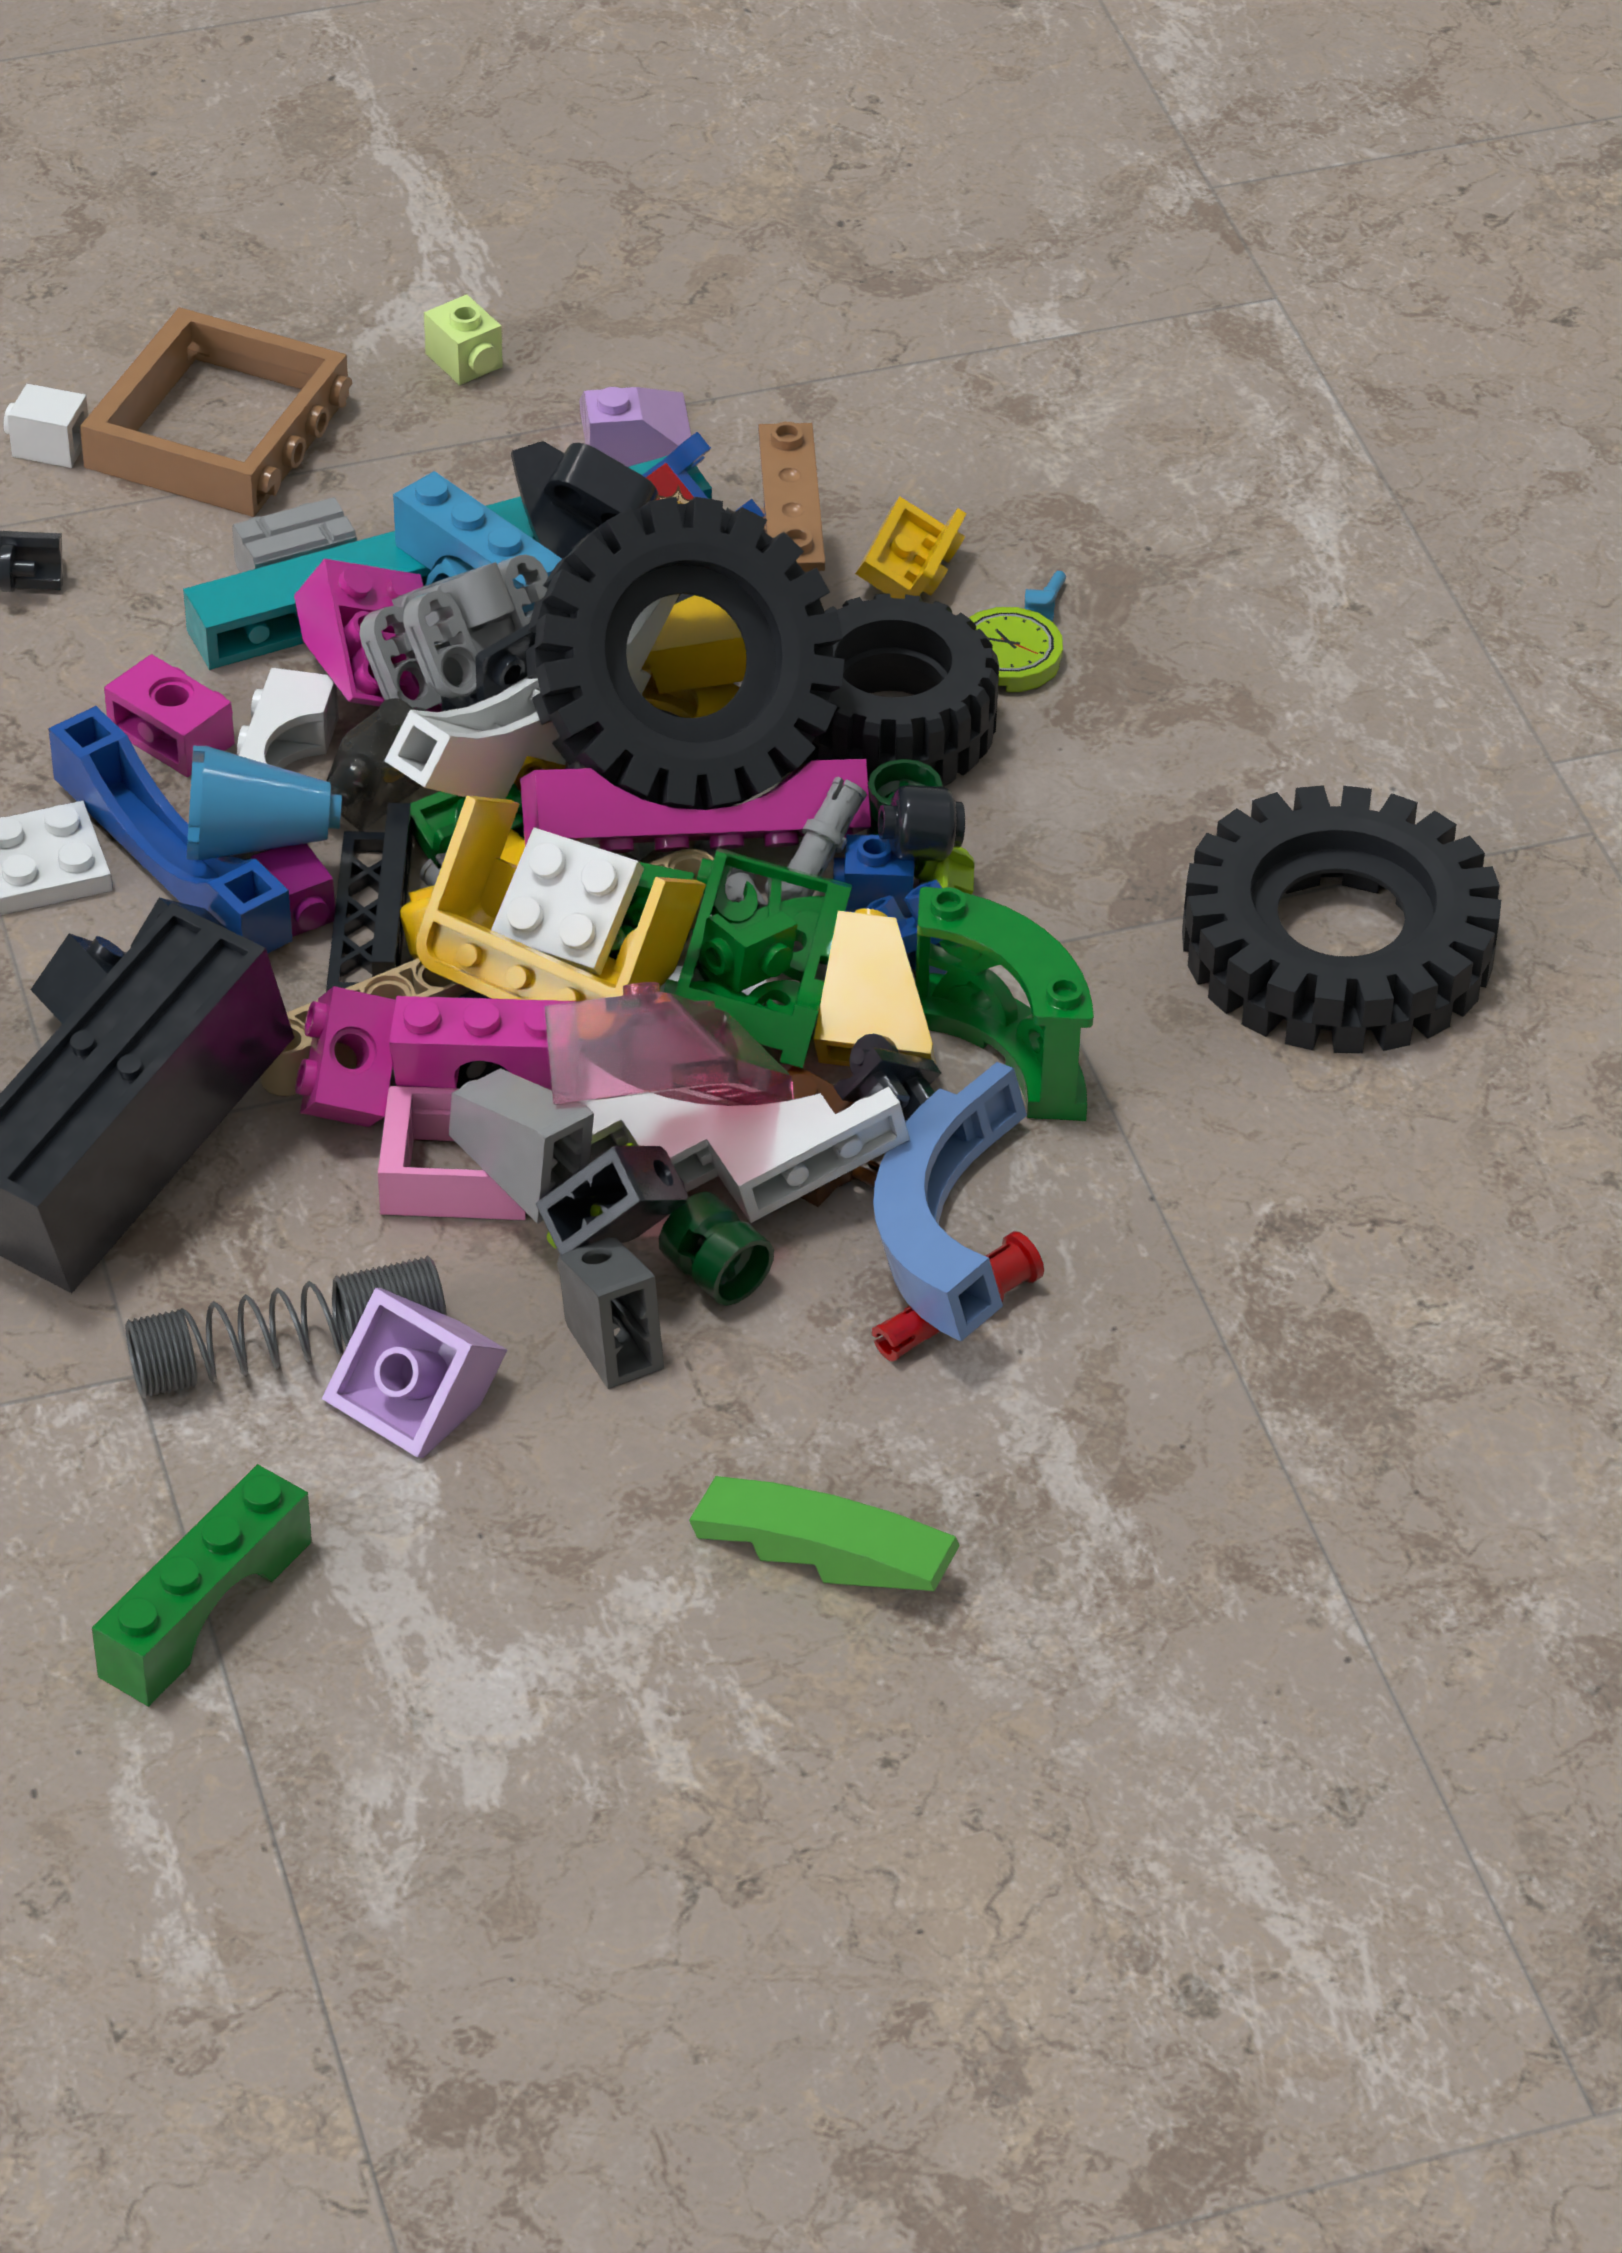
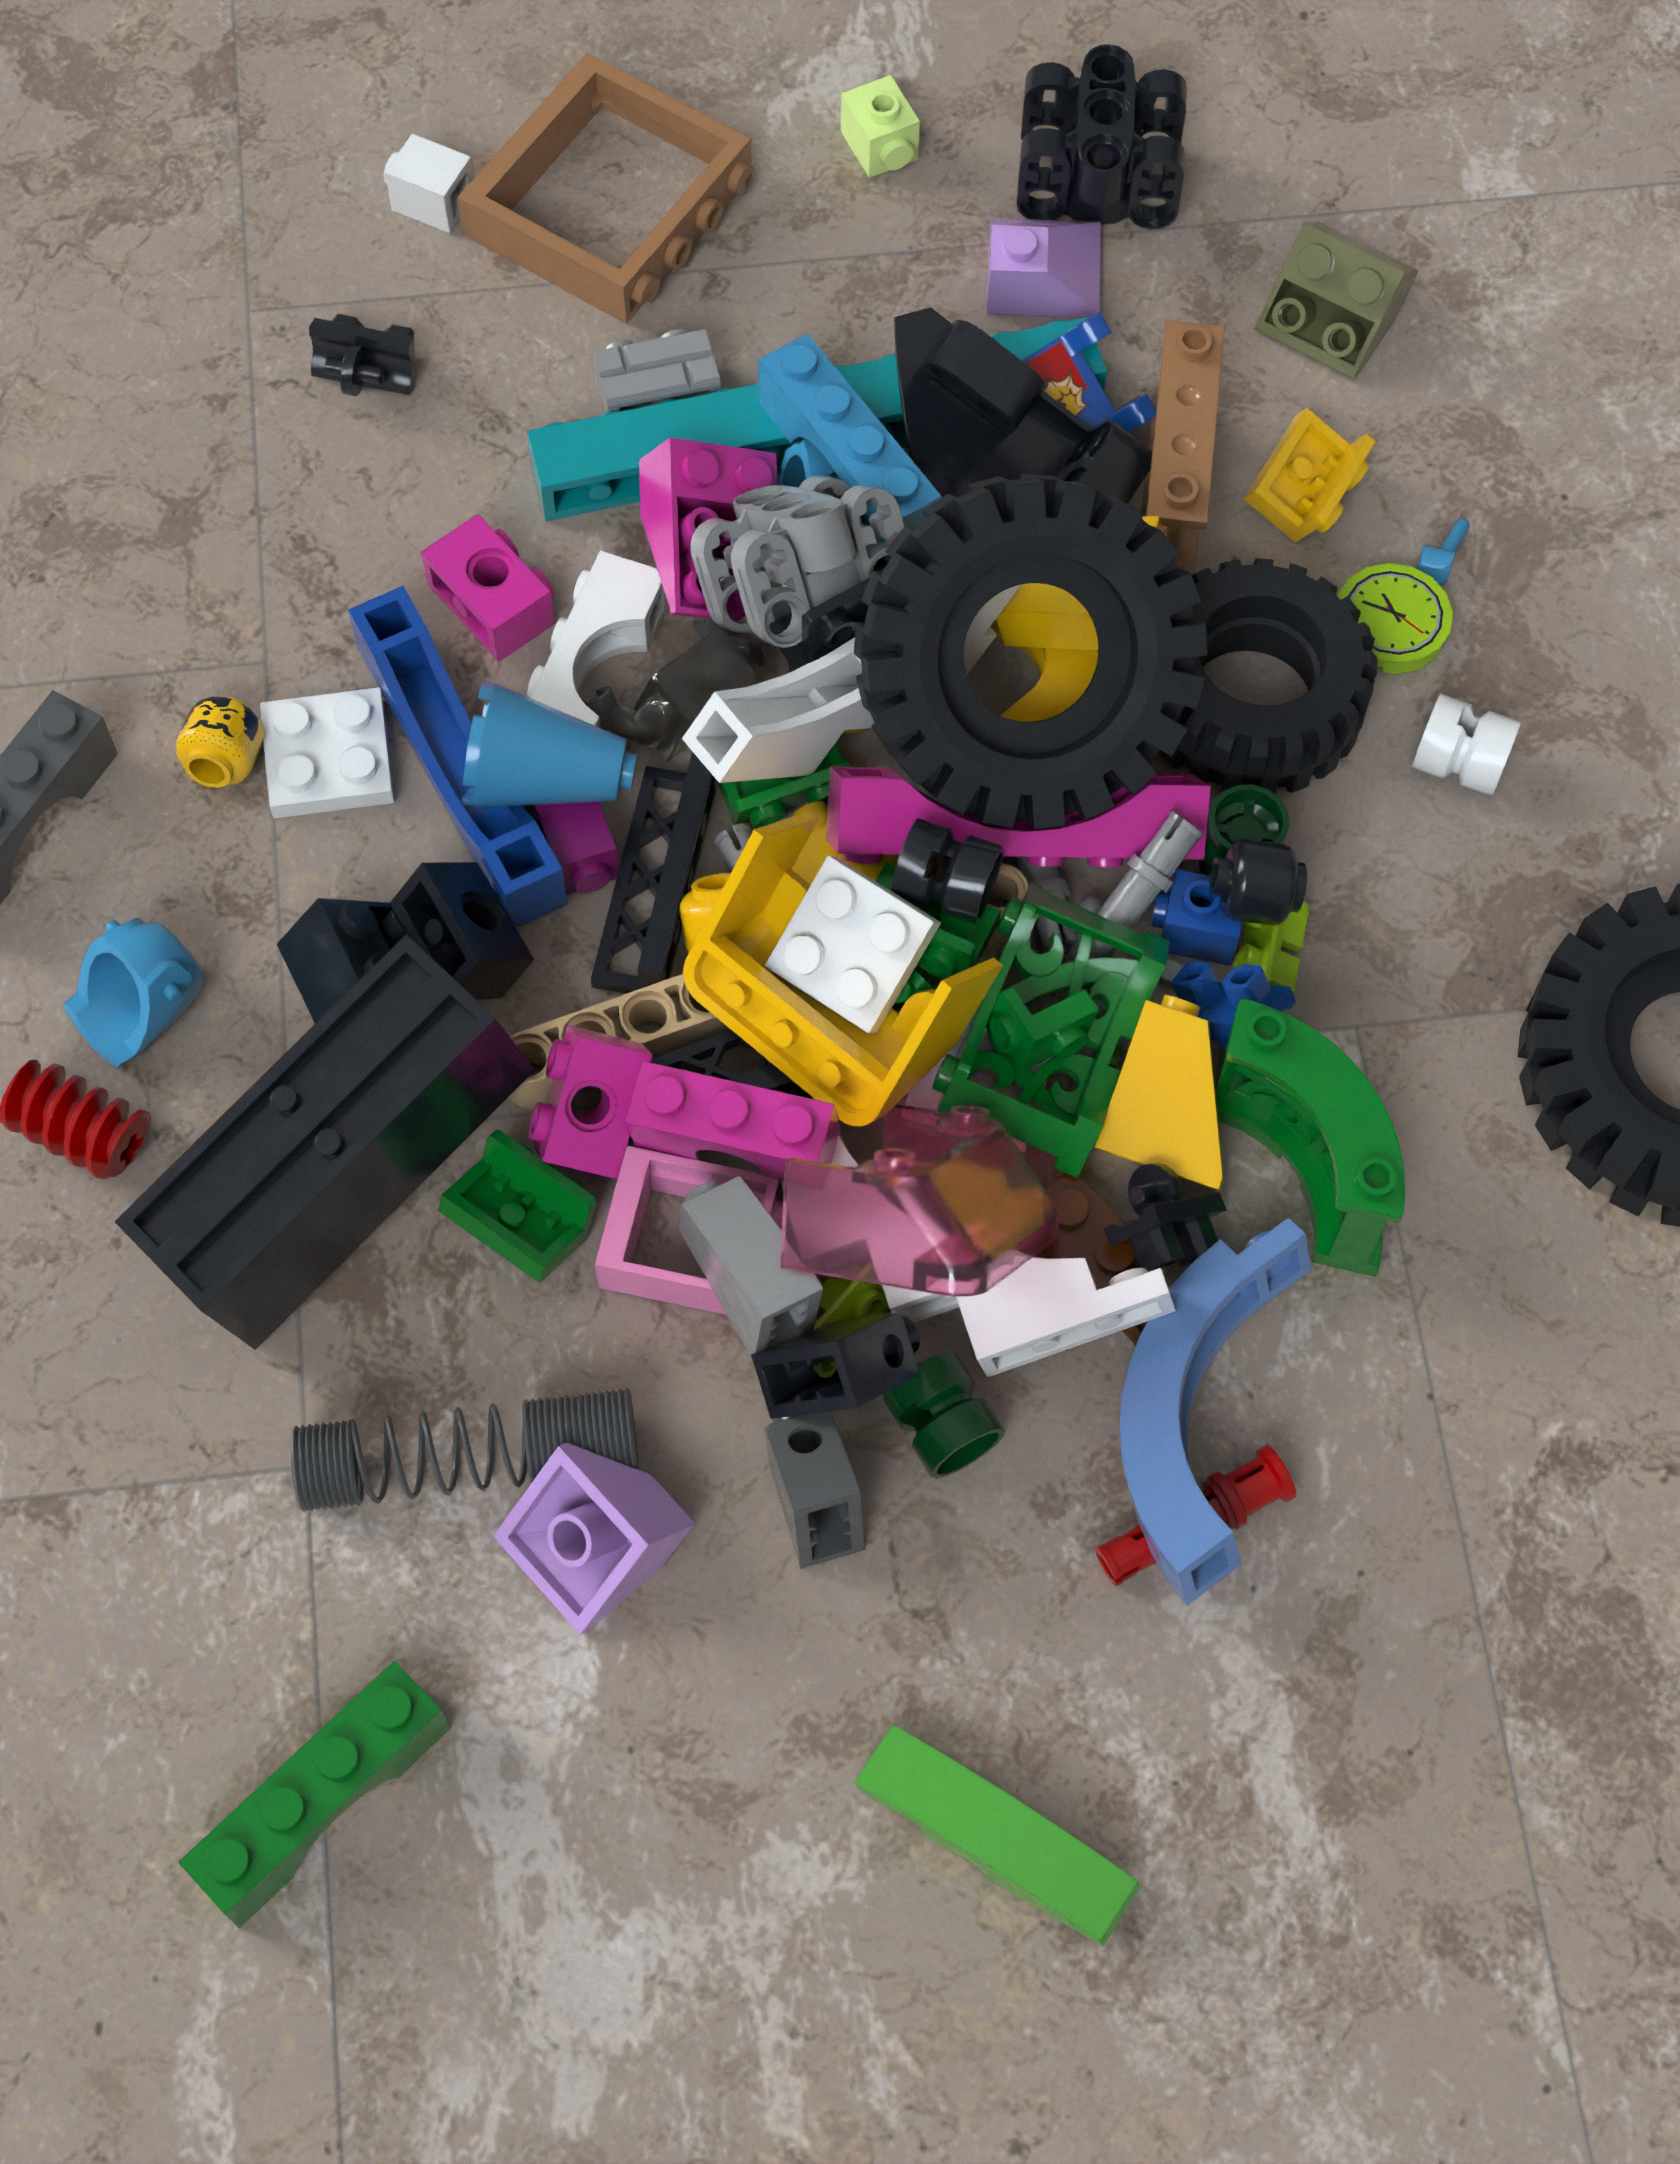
camera: 10 degrees right, 20 degrees up
(300, 1150) = (520, 1207): none -> green bracket
(662, 826) = (968, 877): none -> black wheel
(674, 321) = (1099, 152): none -> black piece
(910, 419) = (1335, 298): none -> olive slope
(1091, 724) = (1466, 744): none -> white wheel

